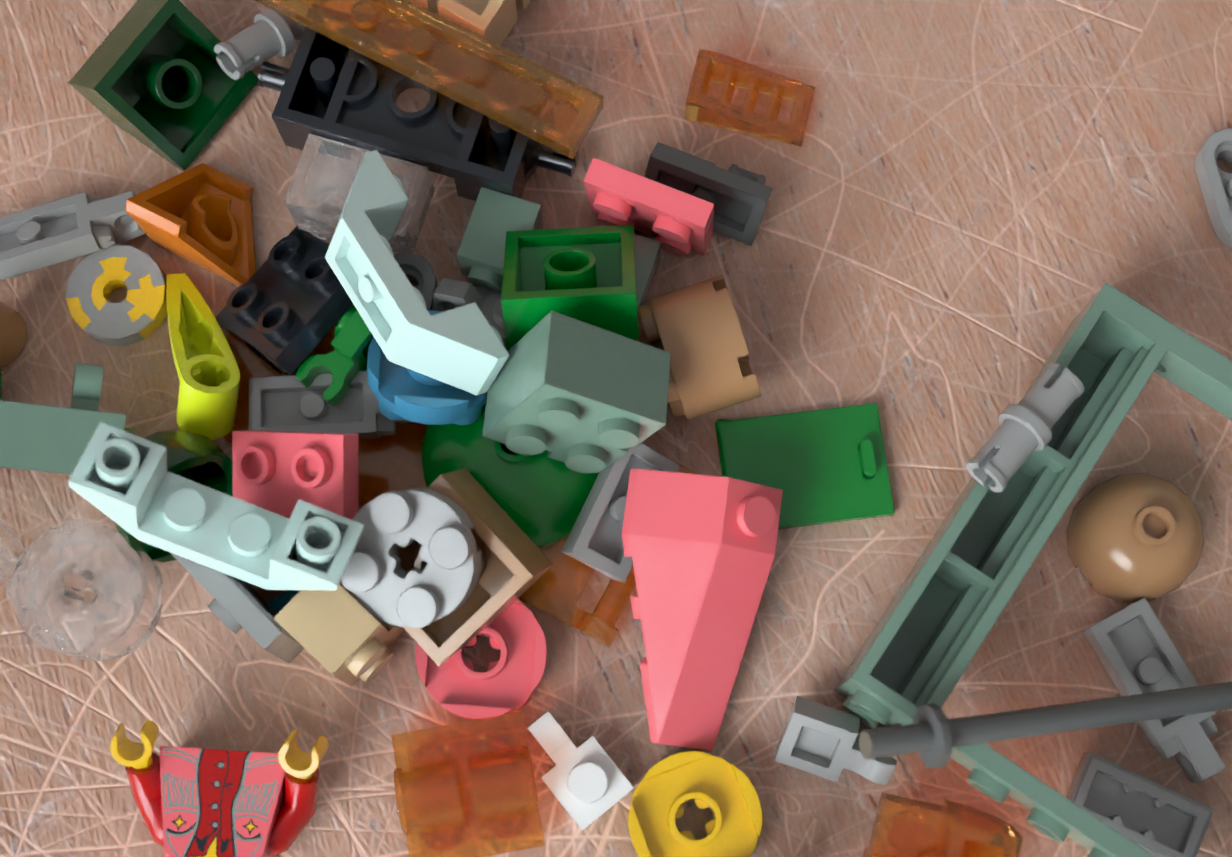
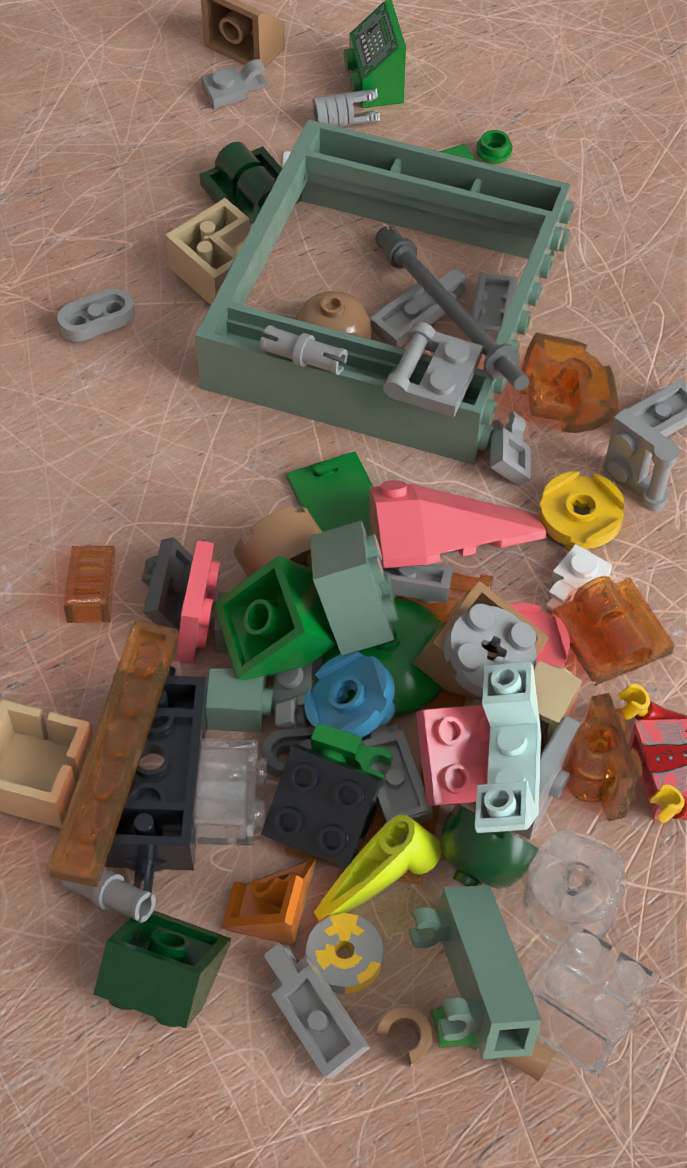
camera: 105 degrees left, 20 degrees down
(215, 692) = (601, 760): none -> clear orange plate
(448, 346) = (306, 719): light aqua slope -> none
(933, 643) = (445, 377): none -> light grey plate

